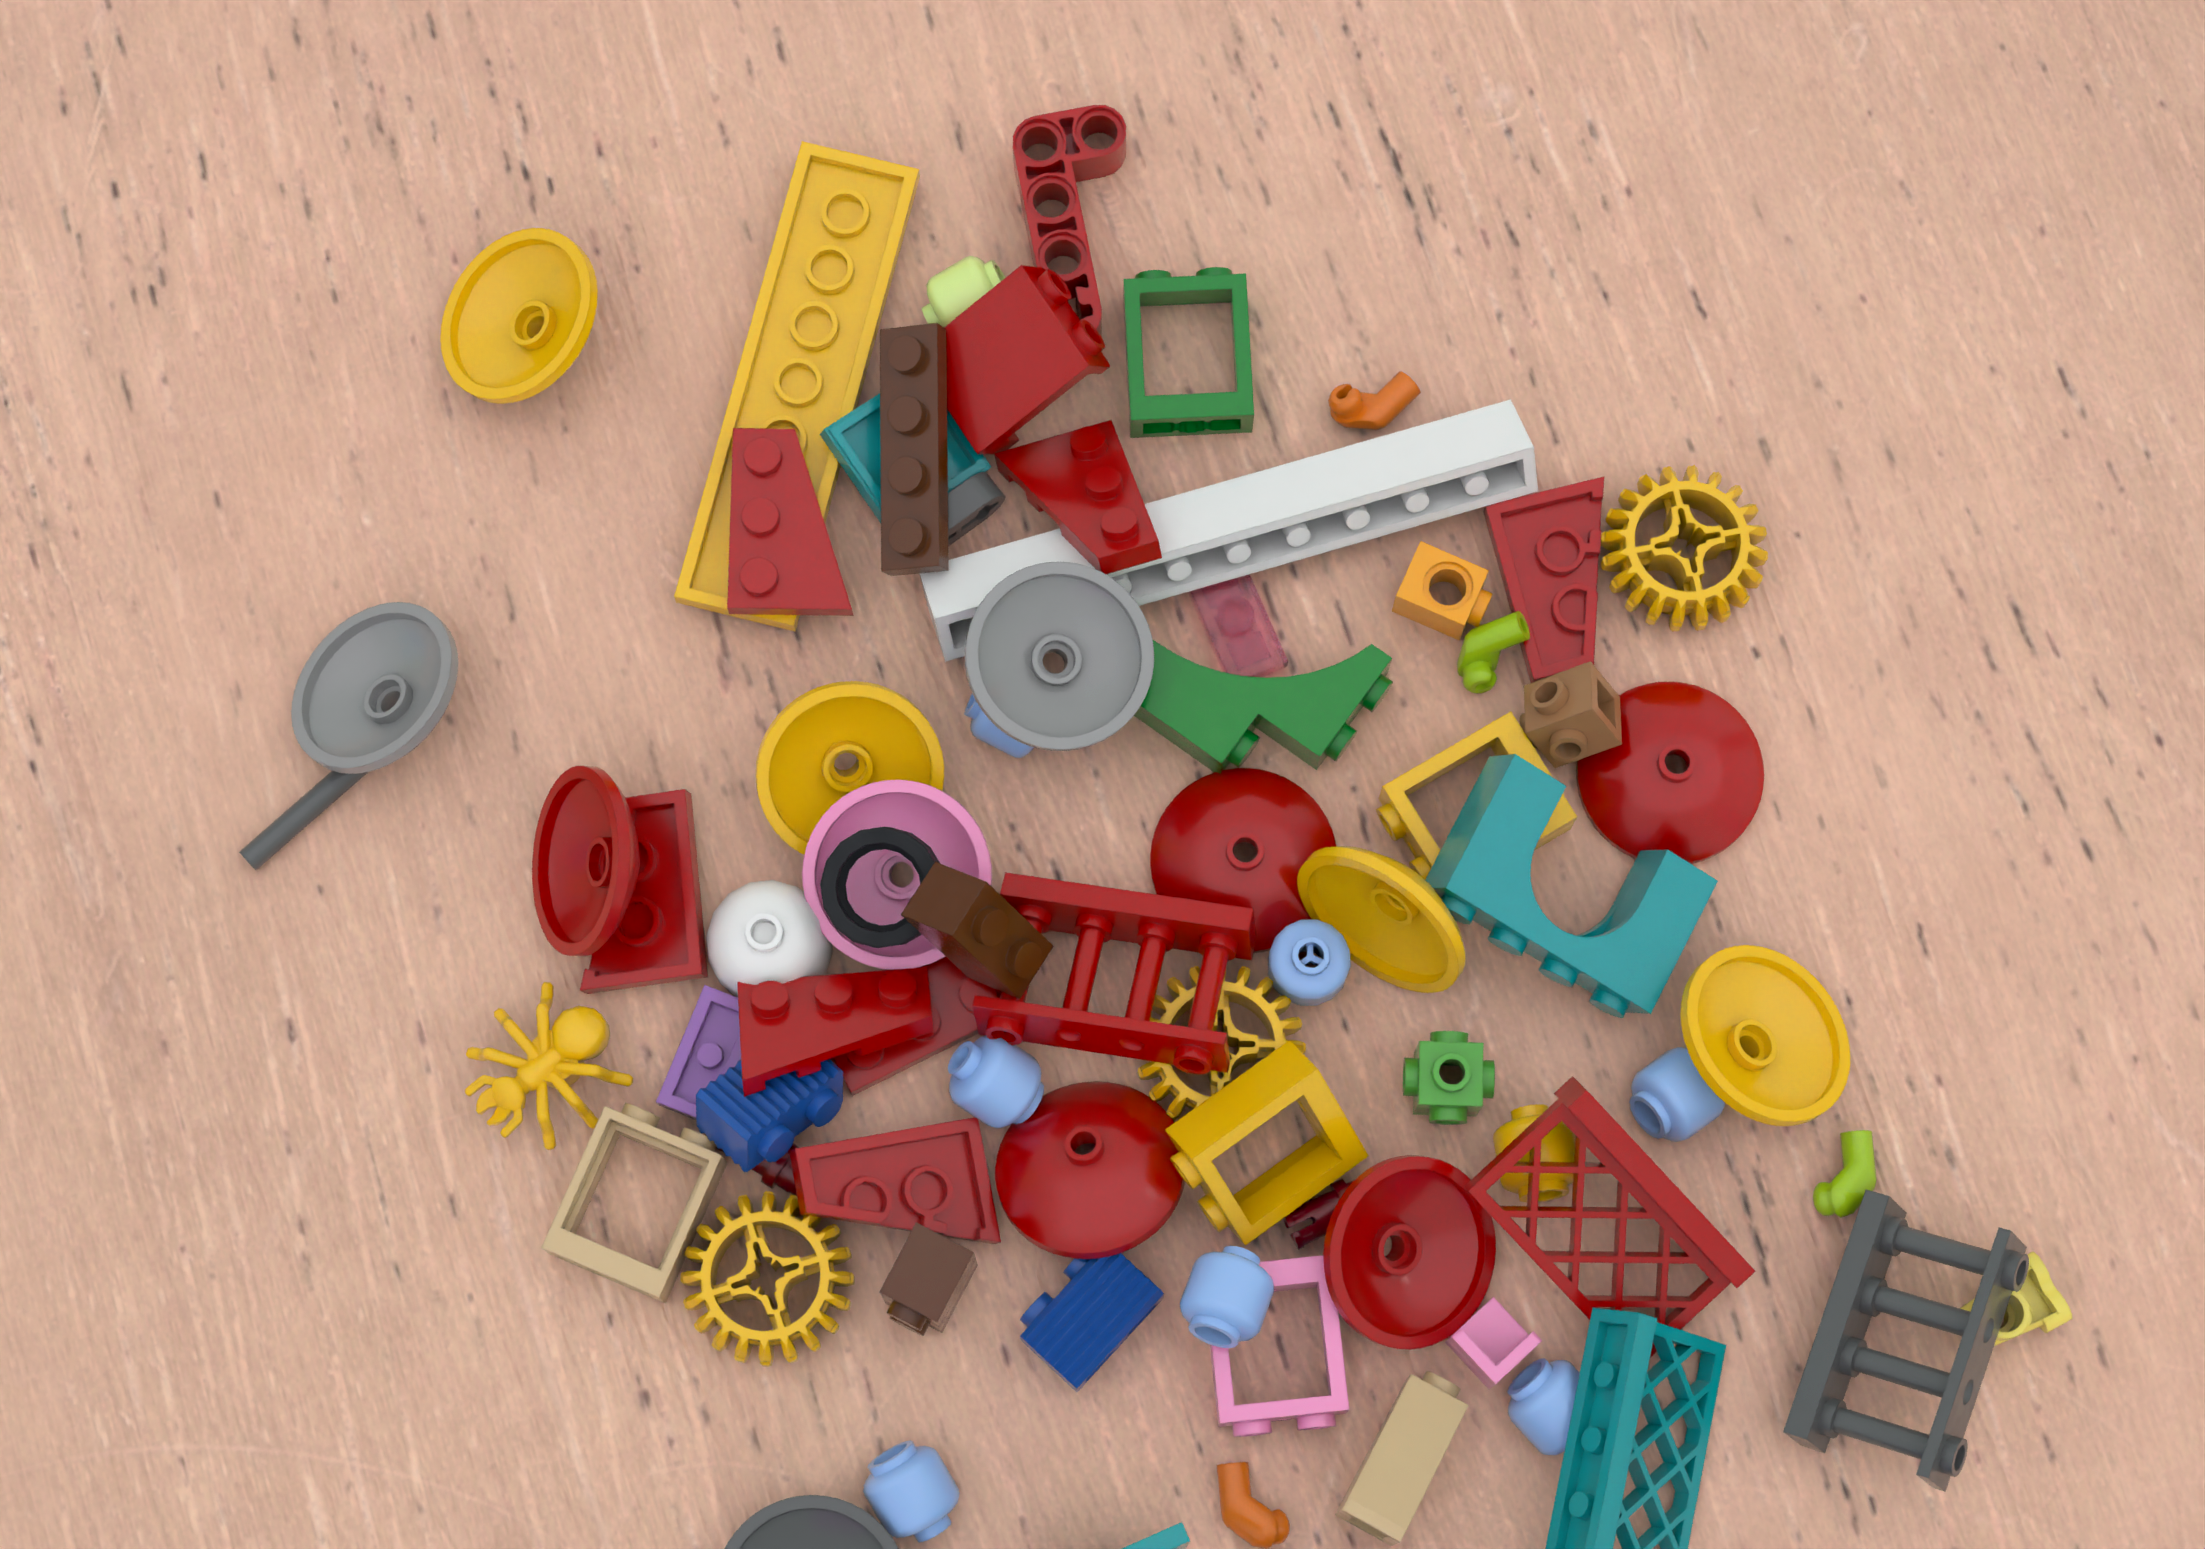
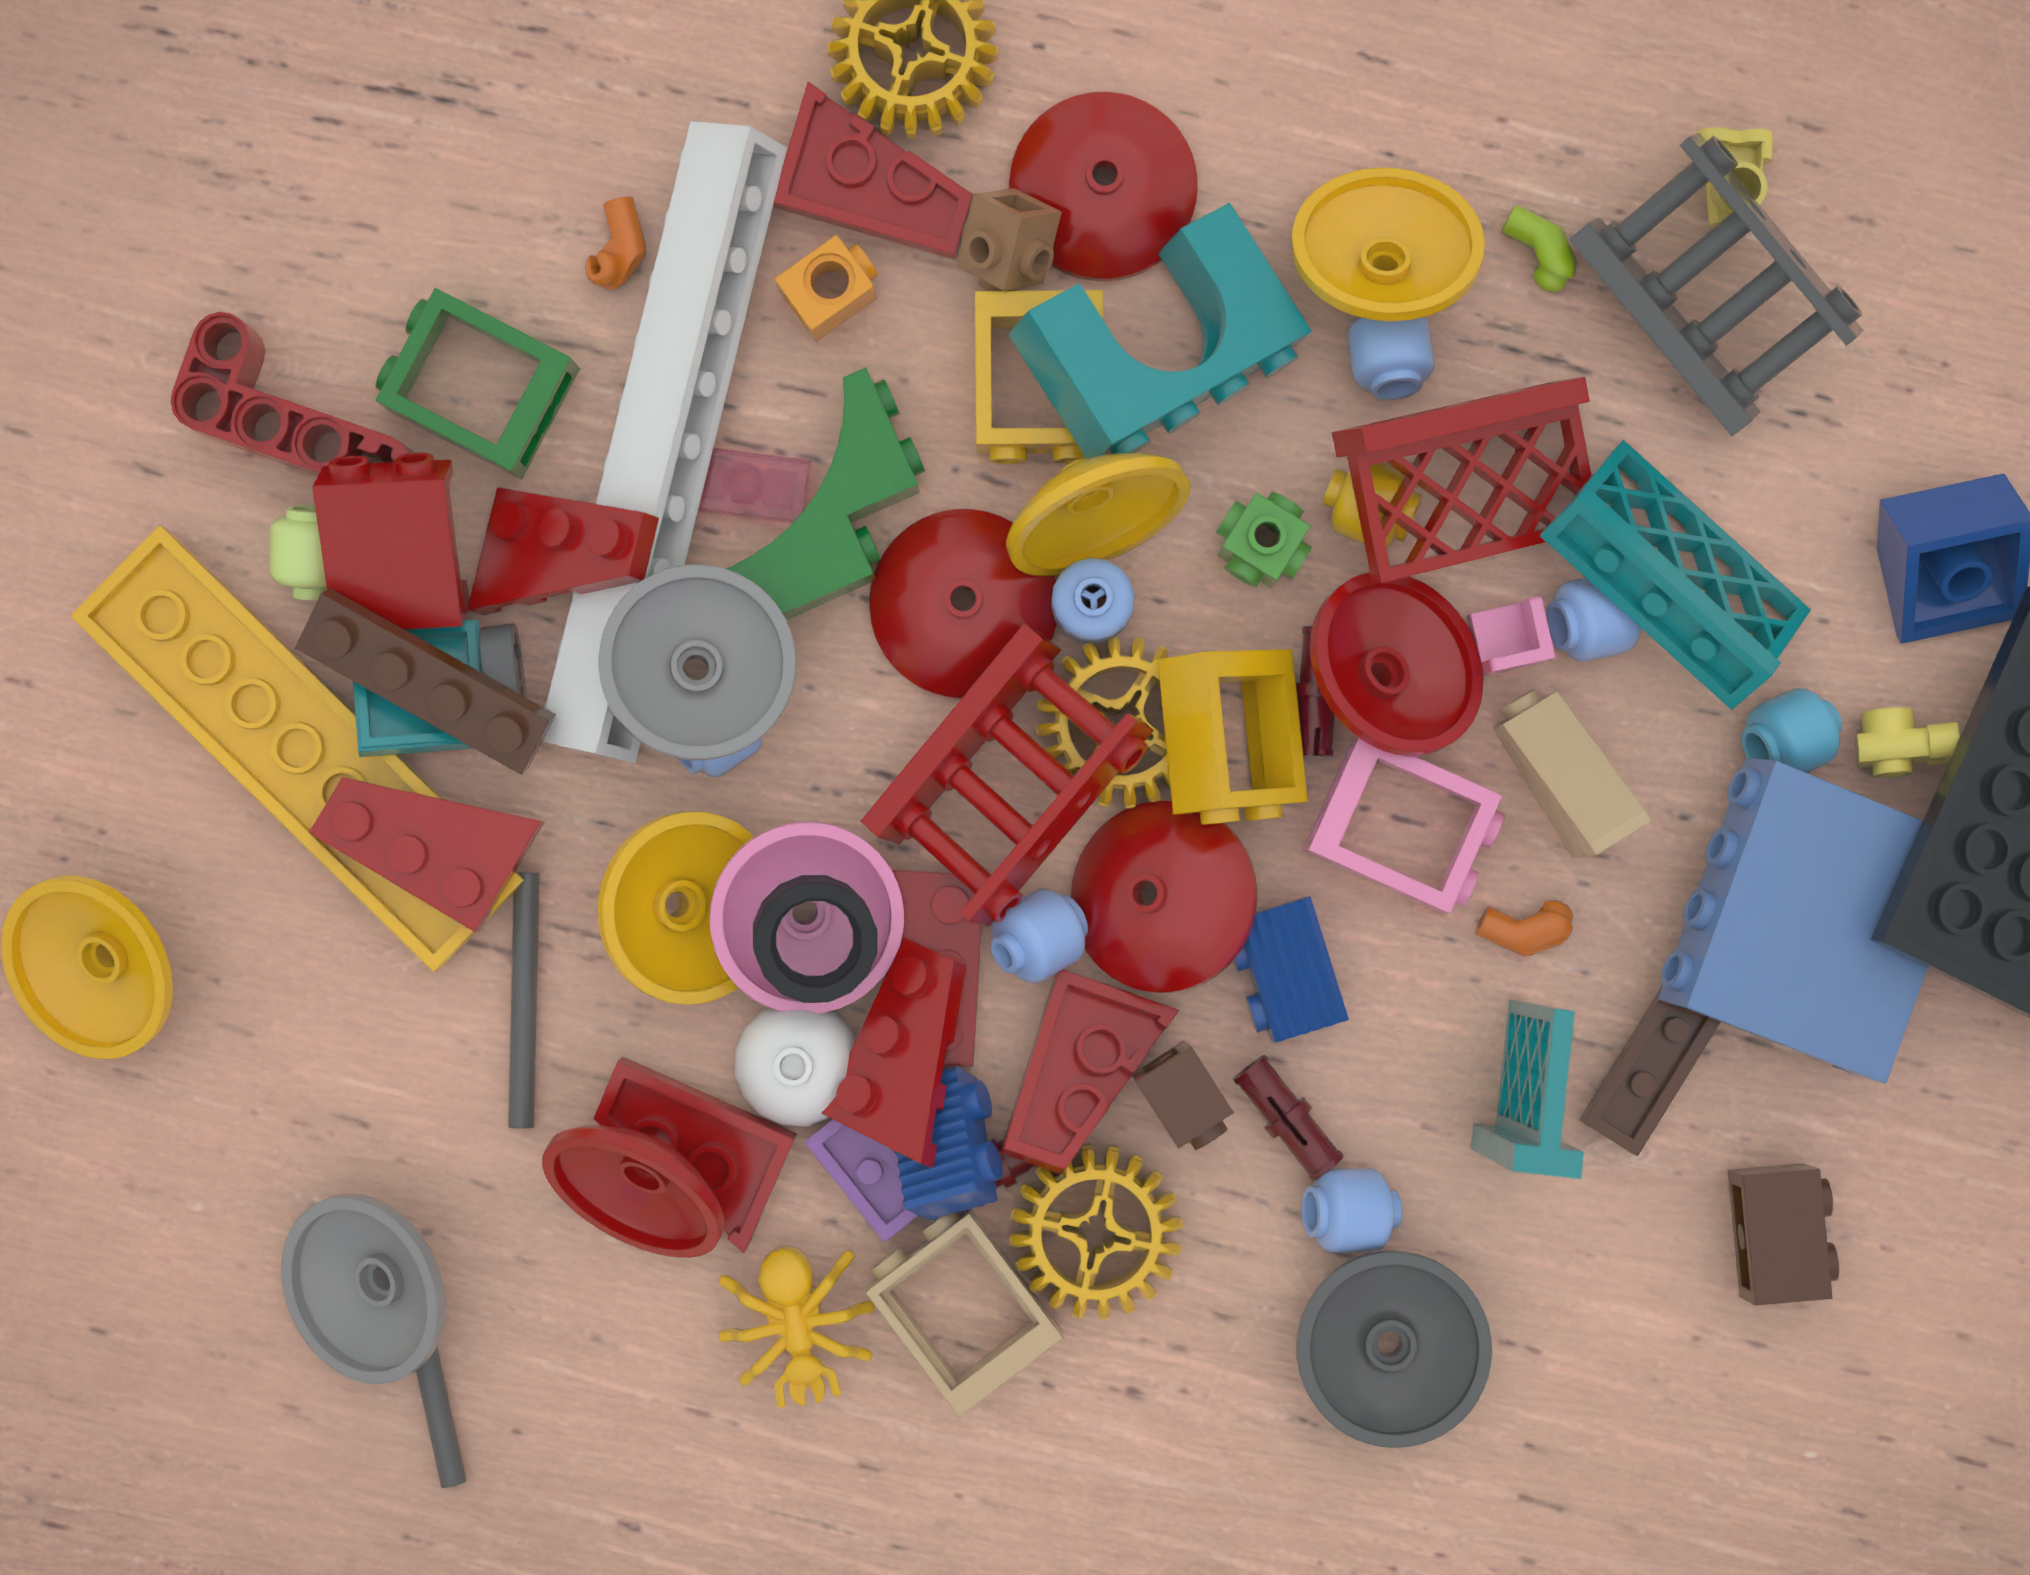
camera: 60 degrees left, 10 degrees up
(690, 687) = (523, 1002): none -> dark grey bar
(961, 1390) = (1265, 1087): none -> dark red pin
(977, 930) = (904, 878): reddish brown brick -> none
(1226, 1297) = (1352, 846): light blue head -> none
(1483, 647) = (899, 281): lime arm -> none

